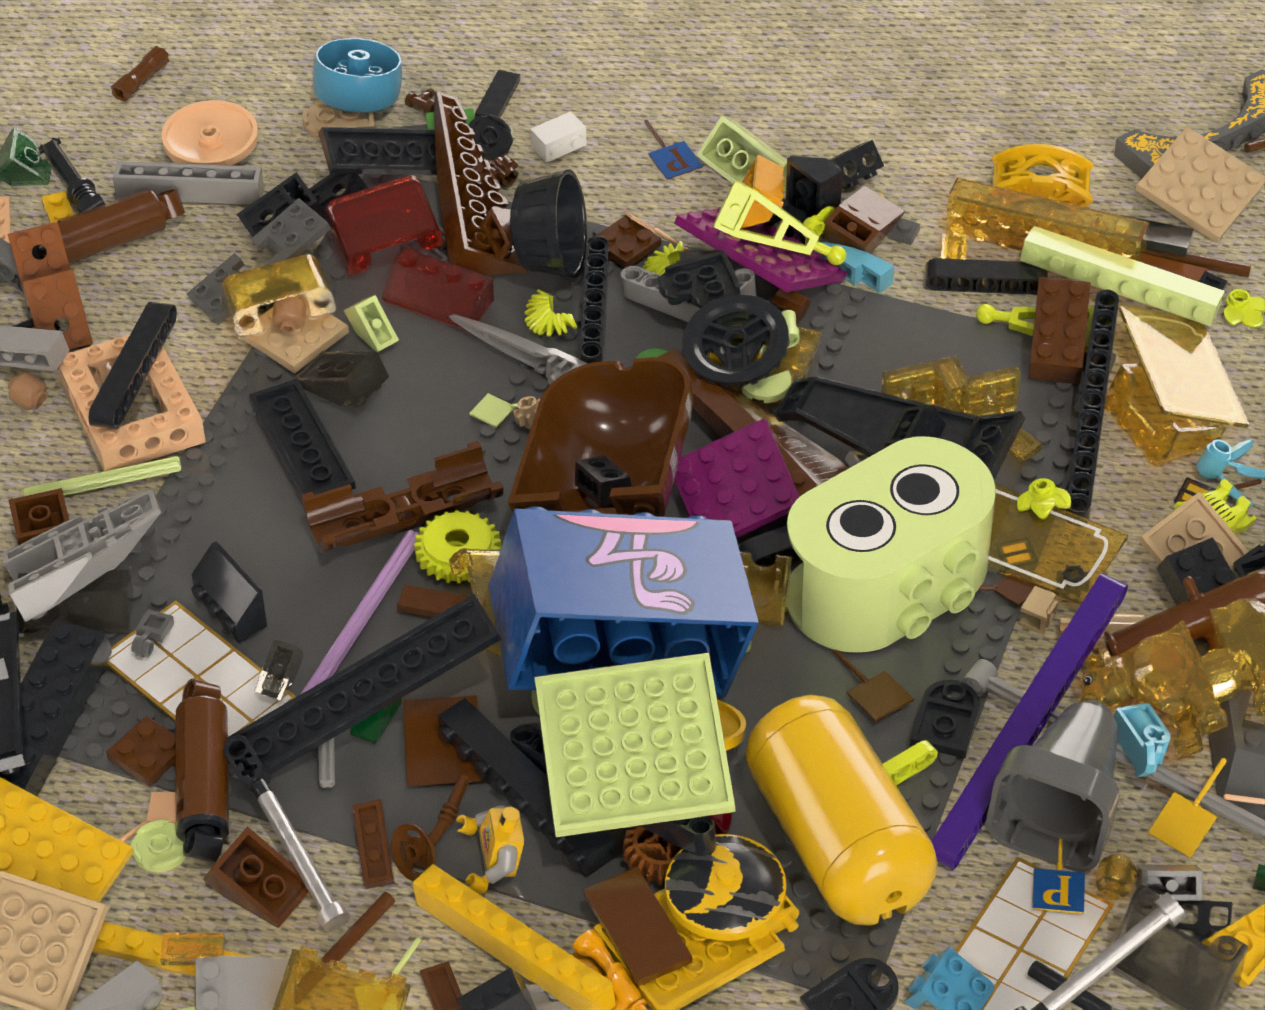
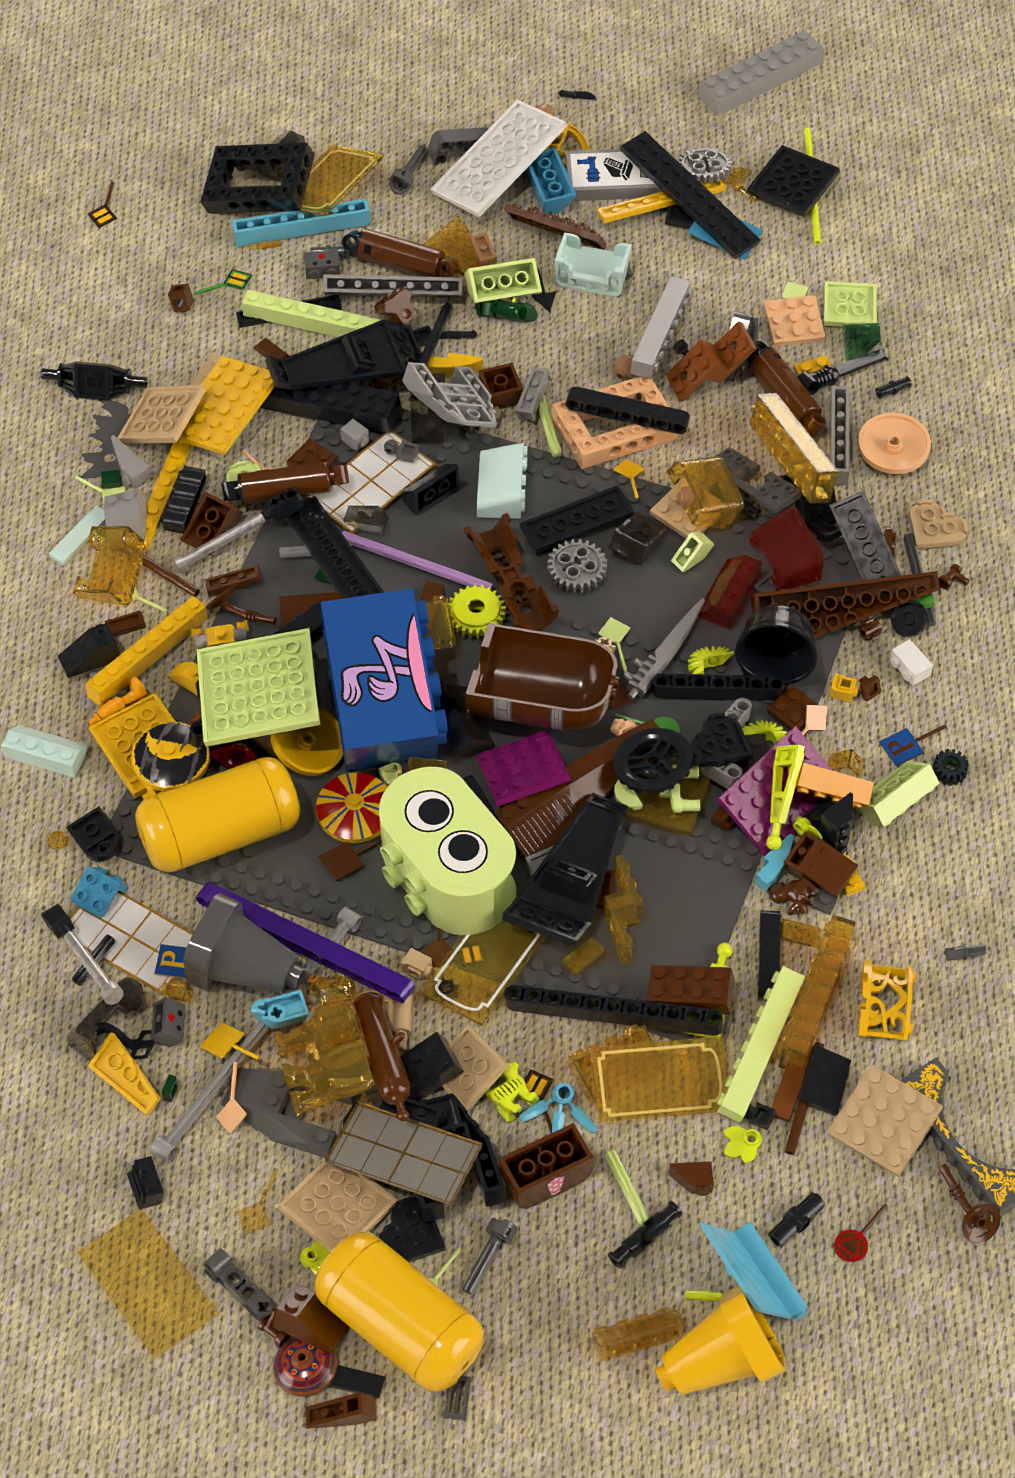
camera: 90 degrees right, 10 degrees up
(74, 483) = (533, 393): none -> light grey container
(108, 139) = (893, 387): none -> black pin
(110, 692) = (354, 435): none -> light grey brick
(130, 82) = (980, 403): reddish brown axle -> none
(186, 947) = (155, 492): clear yellow plate -> none
(189, 912) = (184, 499): none -> black brick
(214, 392) = (630, 470): none -> yellow piece
(225, 203) = (793, 448): none -> clear yellow brick
(228, 506) = (502, 481): none -> light aqua windscreen
(357, 75) = (971, 515): dark azure wheel -> none
(369, 448) = (576, 560): none -> light grey gear
(498, 94) = (966, 626): black tile -> none
(561, 885) = (187, 676): none -> yellow slope
(591, 177) = (870, 687): none -> reddish brown tile
(596, 194) = (843, 688): none -> yellow window
(597, 477) = (527, 686): black brick -> none
(637, 926) = (150, 710): reddish brown tile -> none
(700, 110) = (953, 759): none -> black bush
(702, 199) = (846, 759): none -> clear yellow bracket
(788, 669) = (350, 807): none -> dish
(853, 162) = (894, 860): black brick -> none
(896, 251) = (796, 891): none -> reddish brown animal
(911, 761) = (272, 867): neon yellow beam -> none
(947, 720) = (317, 899): black tile -> none
(965, 118) = (964, 951): none -> dark grey axle
(1043, 498) = (518, 970): neon yellow plate -> none

